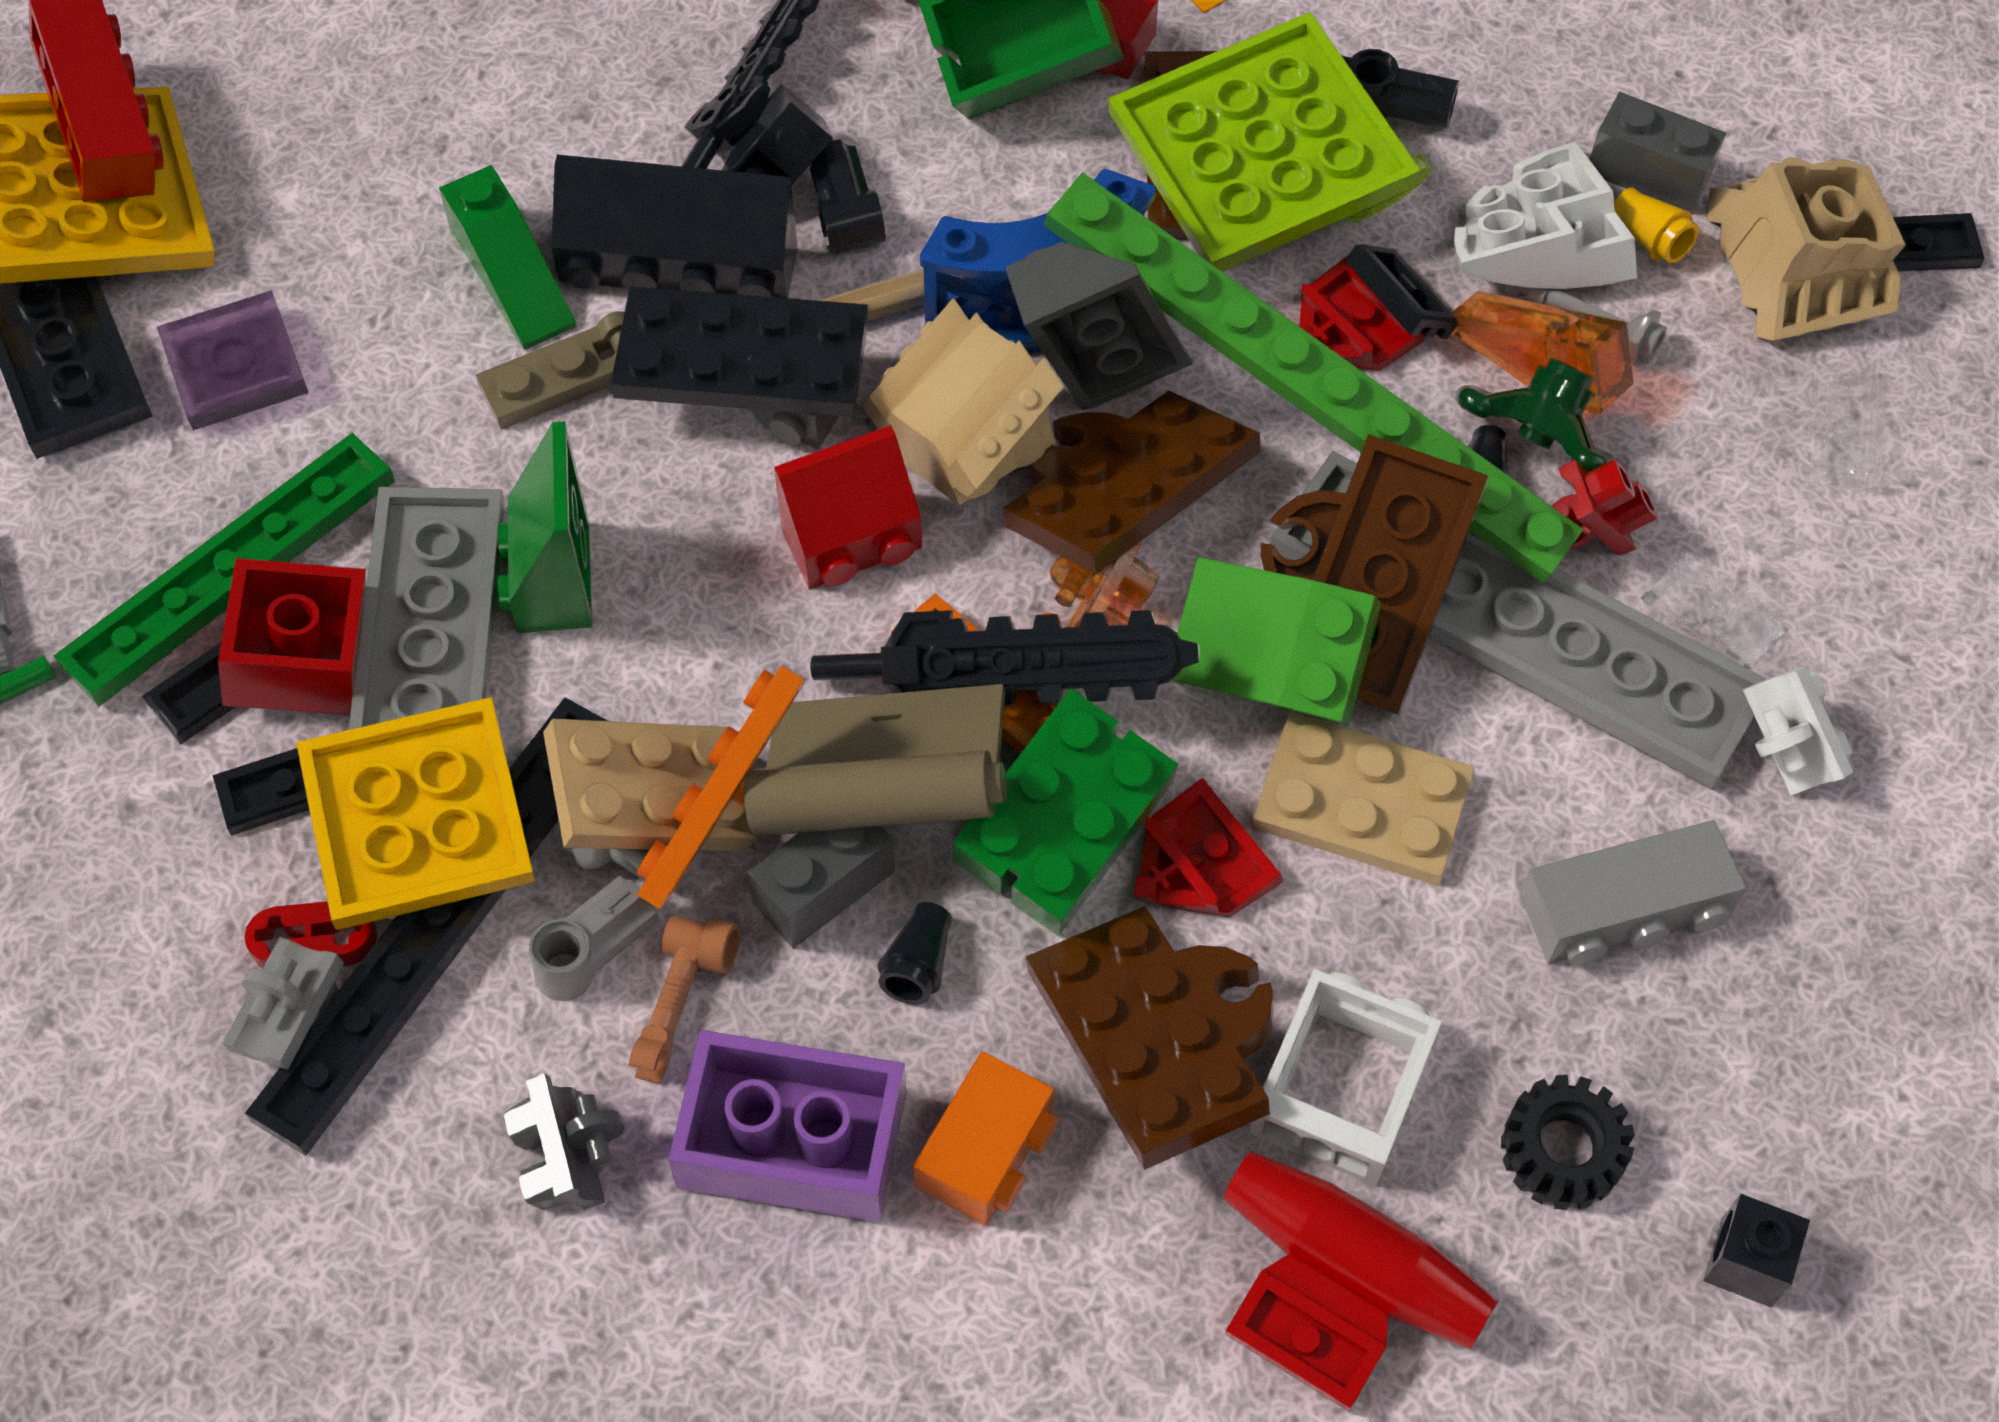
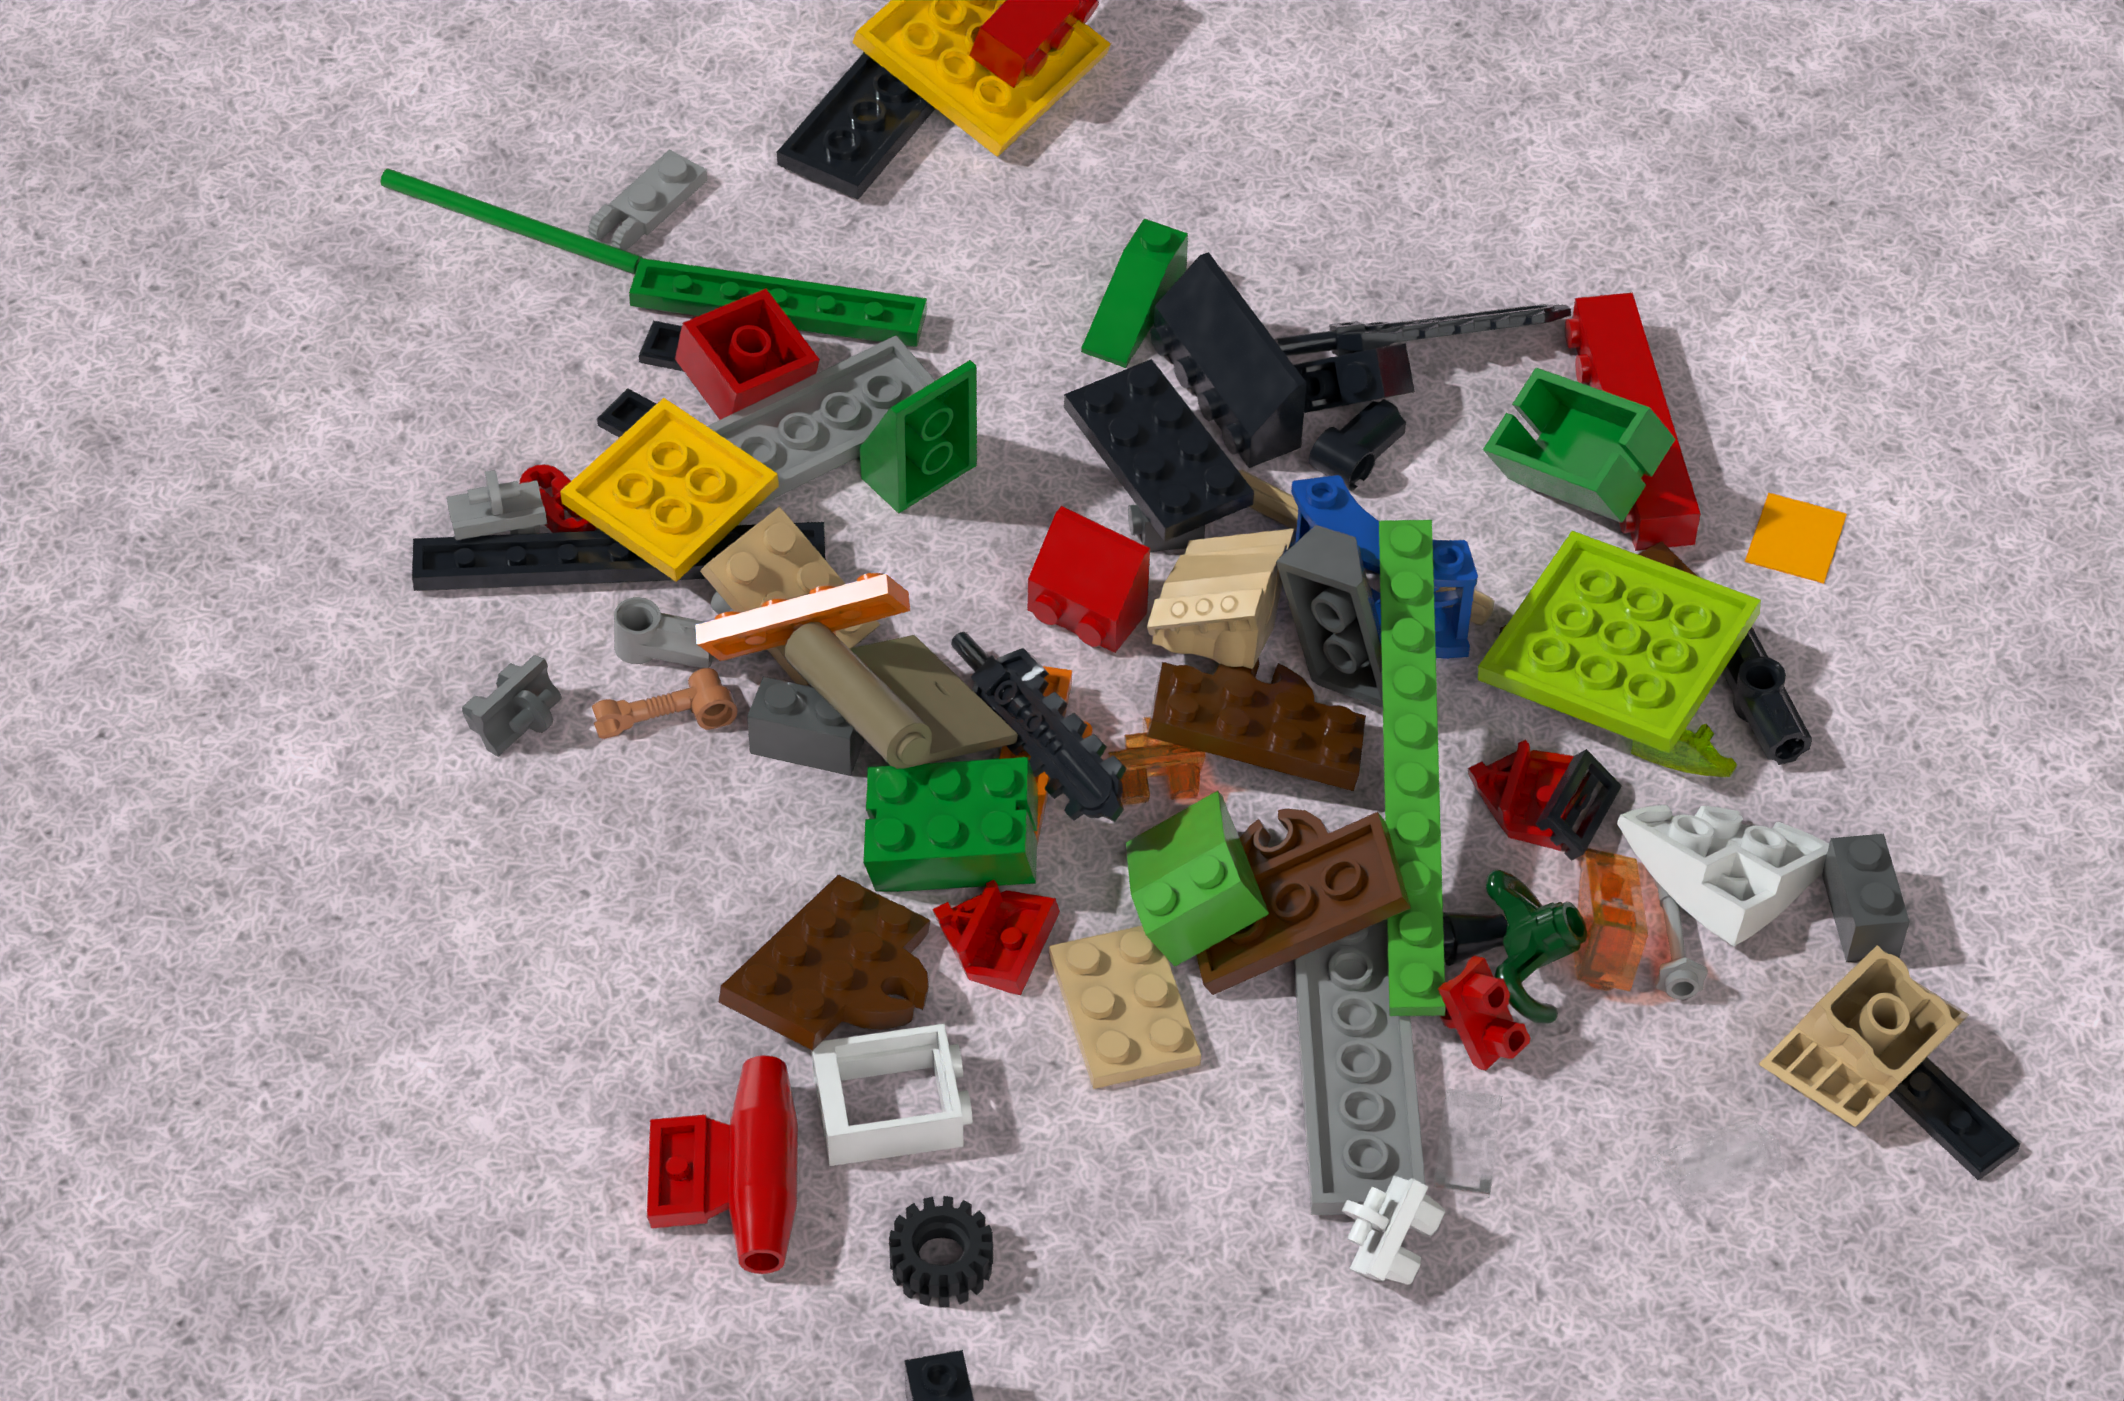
camera: 55 degrees right, 10 degrees down
(232, 360) = (931, 209): clear purple plate -> none
(552, 374) = (1055, 368): dark tan plate -> none
(789, 1125) = (610, 807): medium lavender brick -> none
(916, 957) = (791, 814): black cone -> none
(985, 1139) = (686, 919): orange brick -> none
(1632, 893) = (1171, 1196): light grey brick -> none
(1659, 227) = (1800, 938): yellow cone -> none

